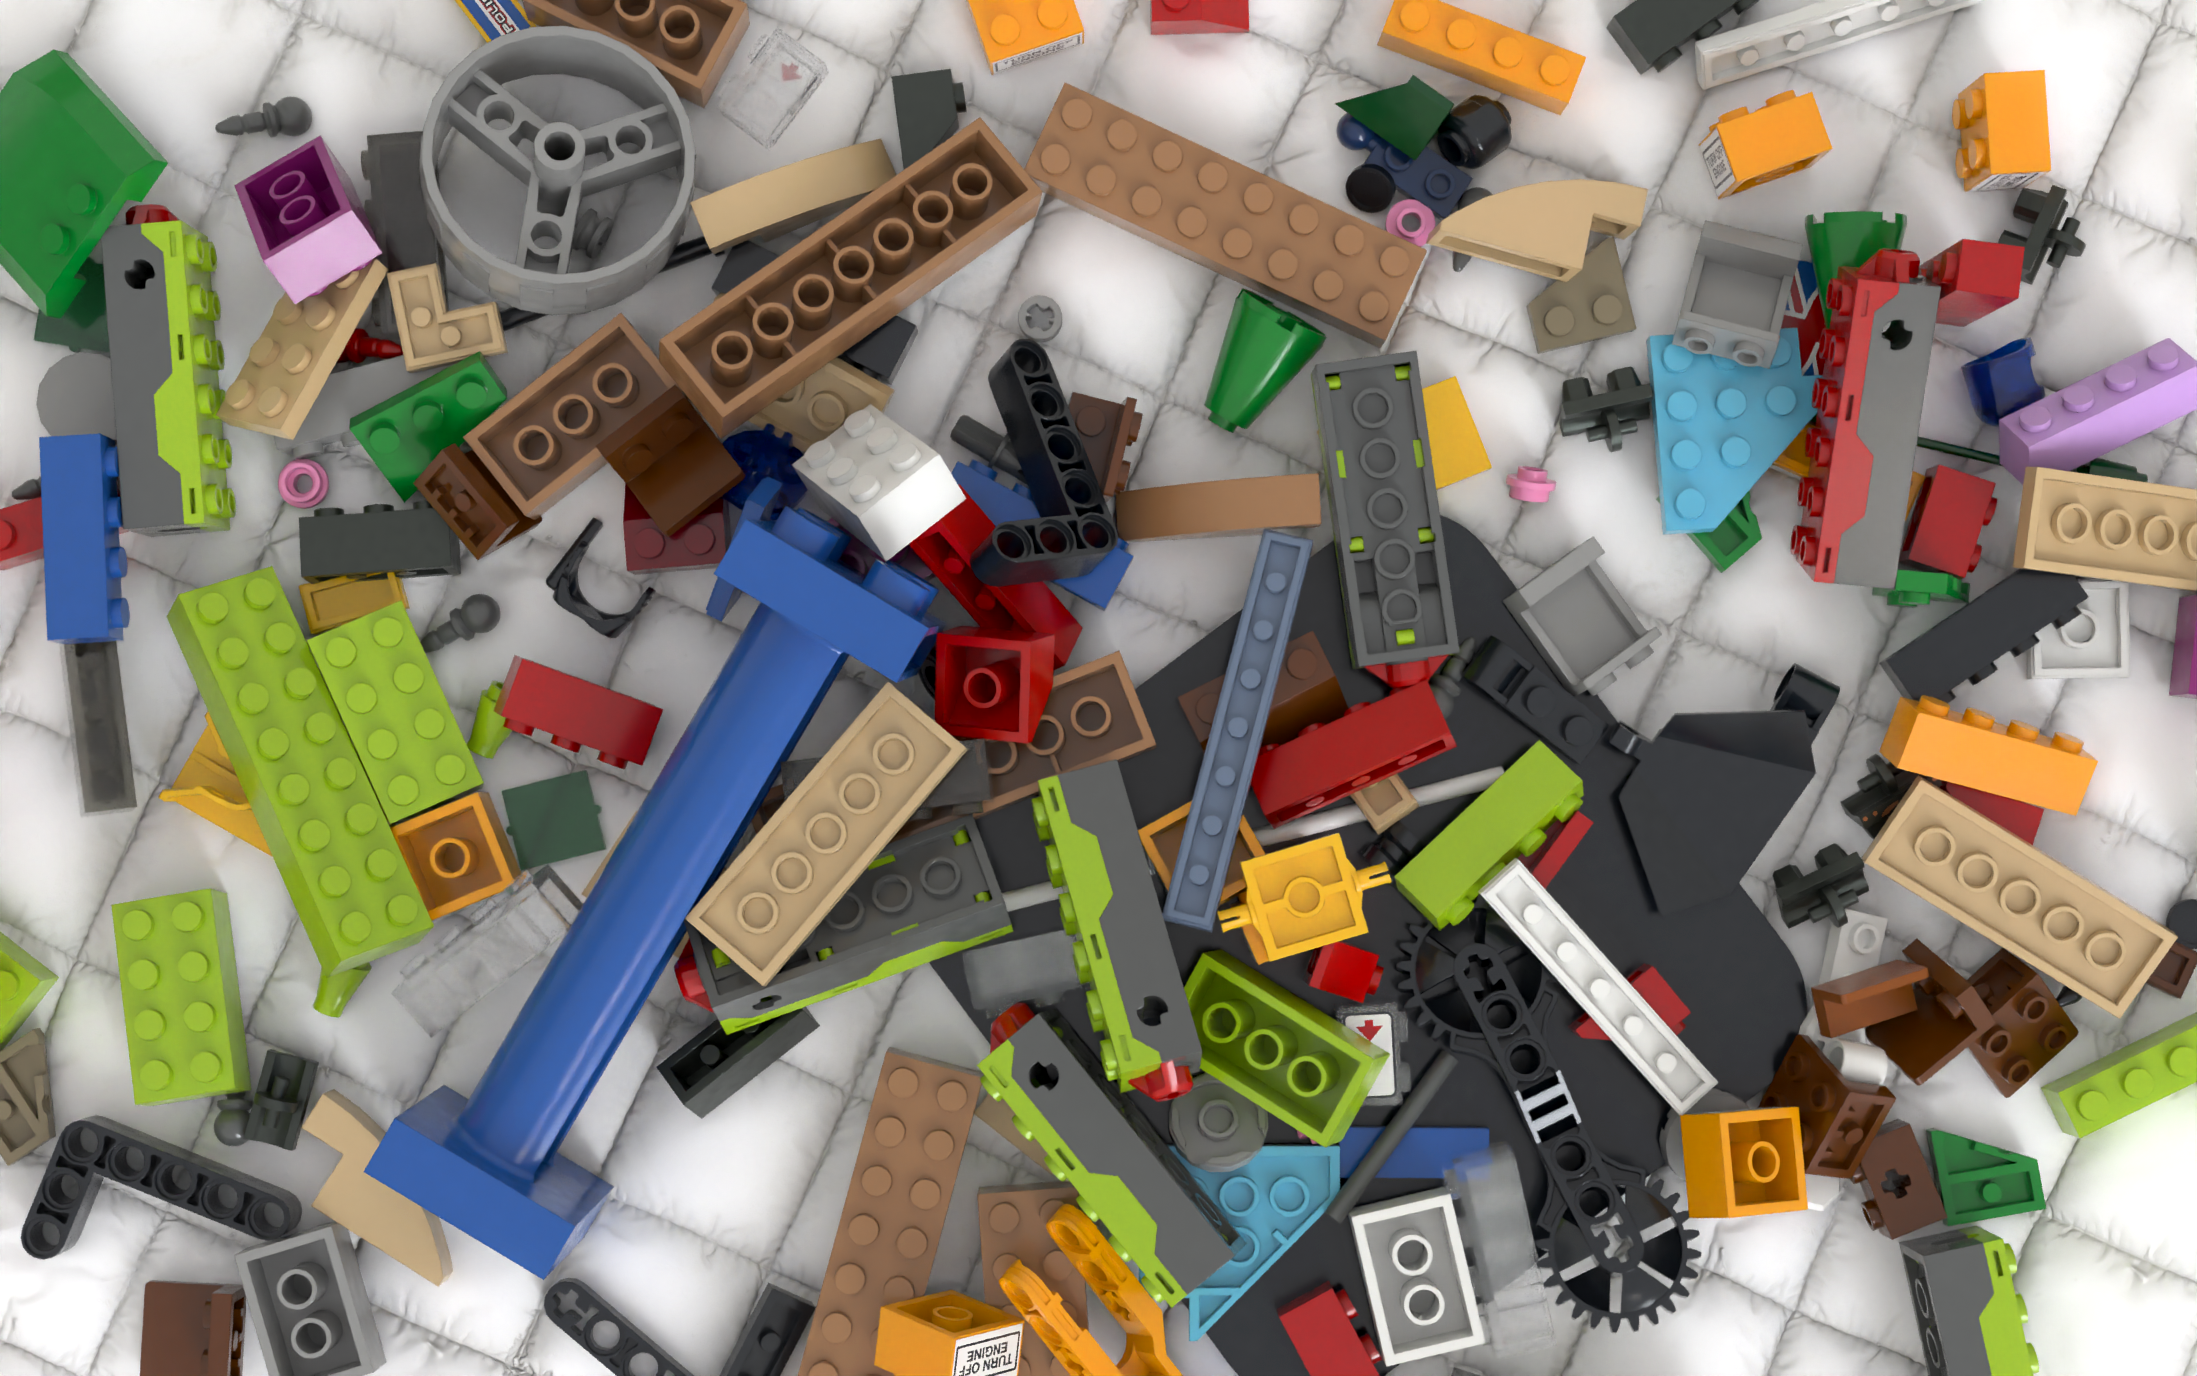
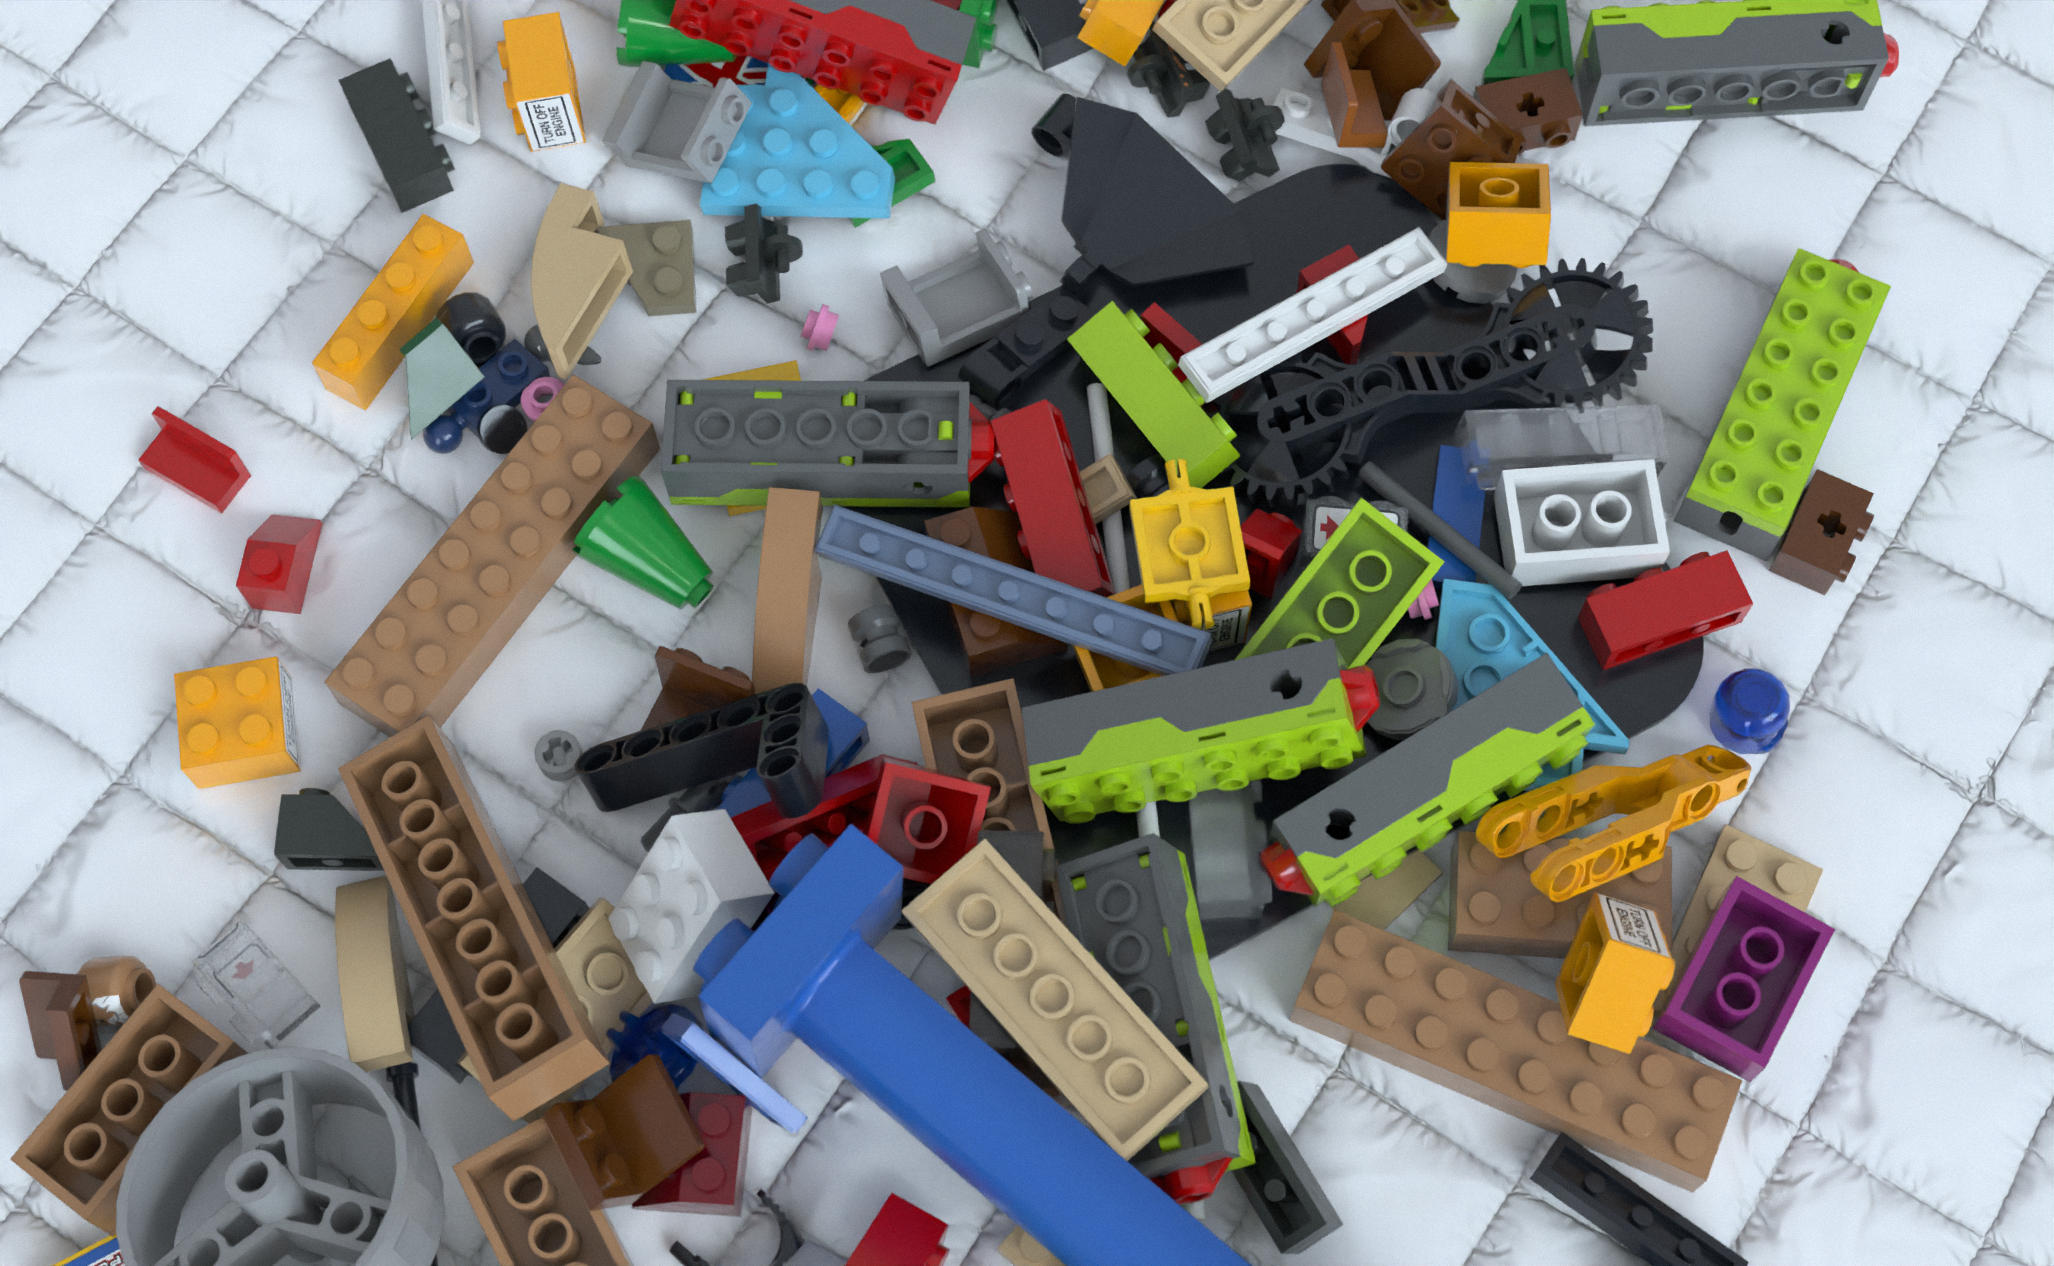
camera: 75 degrees left, 20 degrees down
(1201, 604) = (879, 638): none -> dark grey wheel

